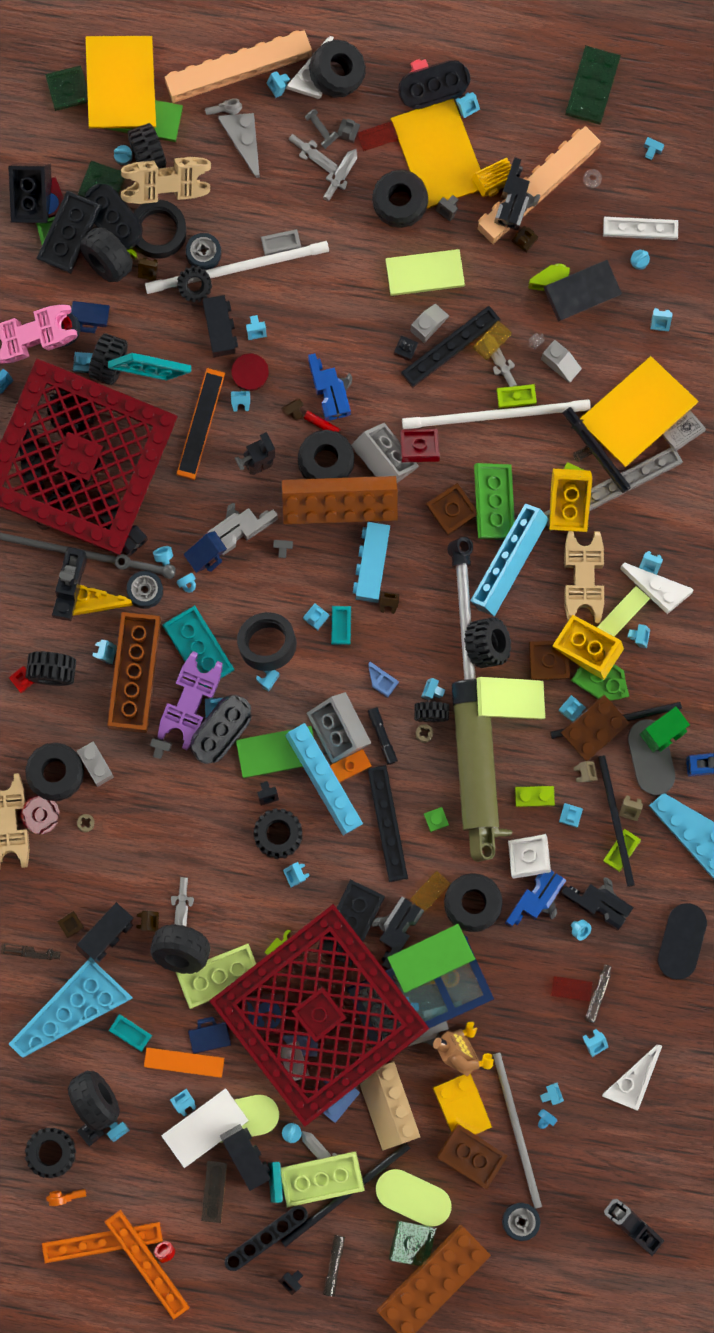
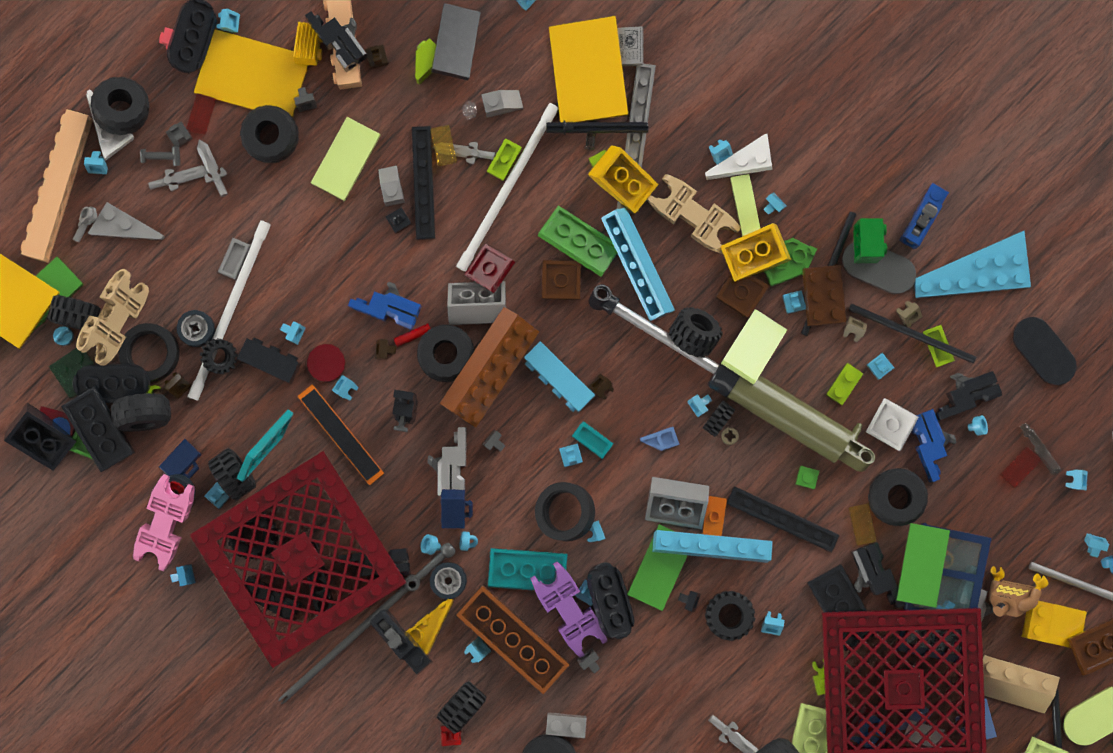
camera: 45 degrees left, 5 degrees up
(378, 725) = (720, 475): black piece -> none

